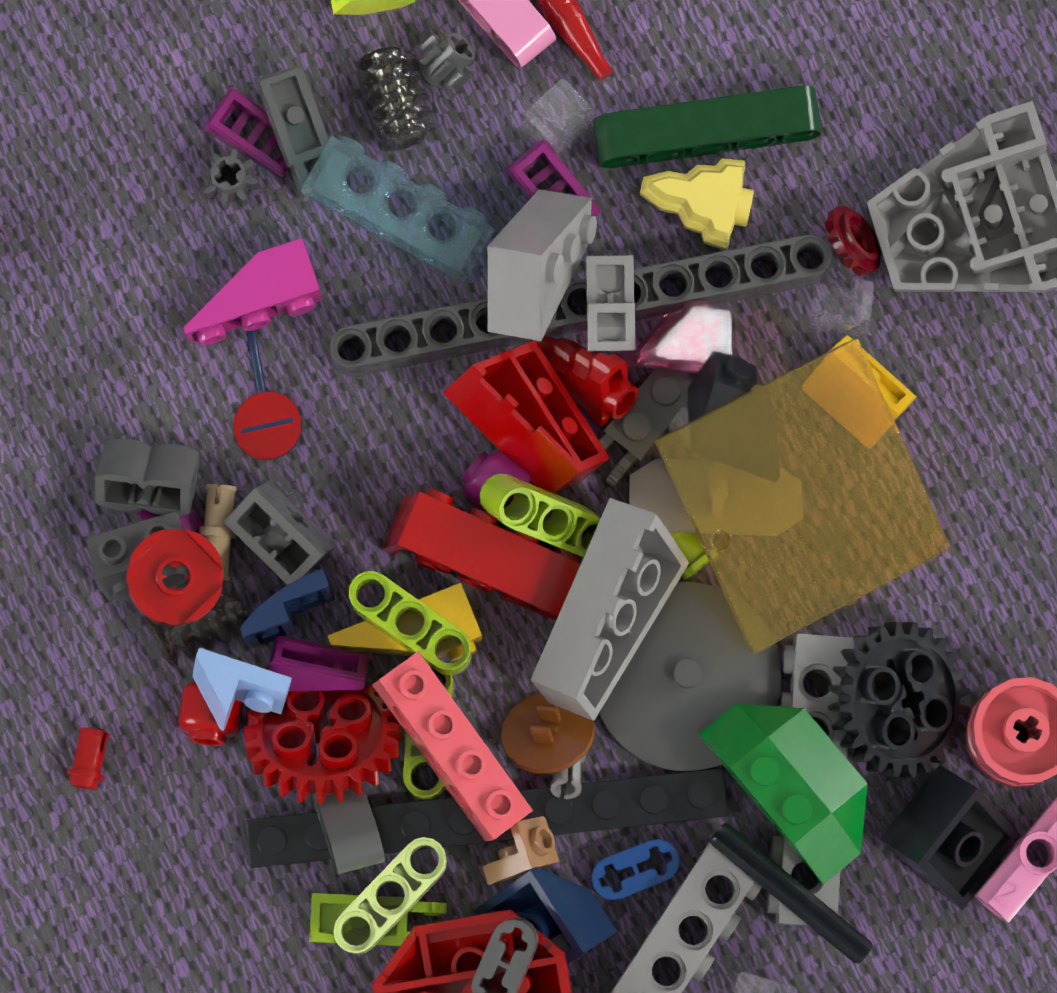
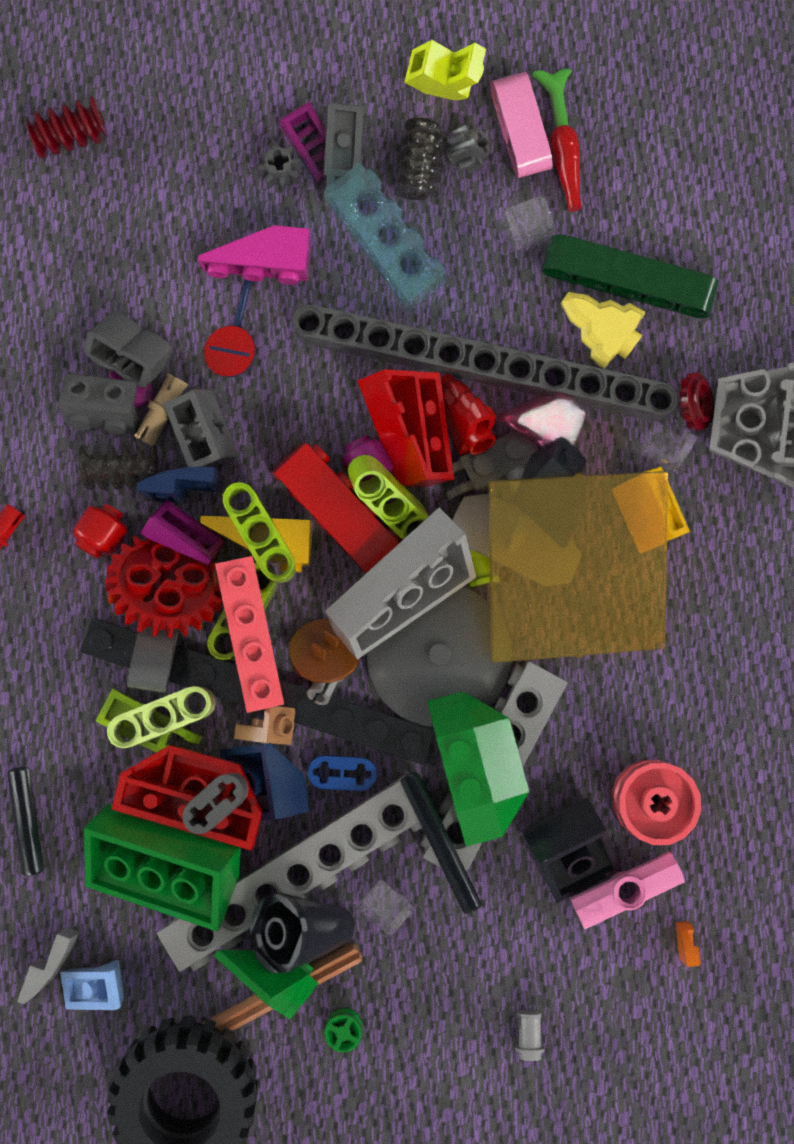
camera: 25 degrees right, 5 degrees up
(174, 549) = (119, 408): red plate -> none
(228, 679) = (114, 516): light blue slope -> none
(536, 261) = (463, 316): light grey wedge -> none
(554, 164) = (494, 244): magenta slope -> none
(610, 303) = (503, 369): light grey slope -> none
(899, 699) = (579, 739): black gear -> none

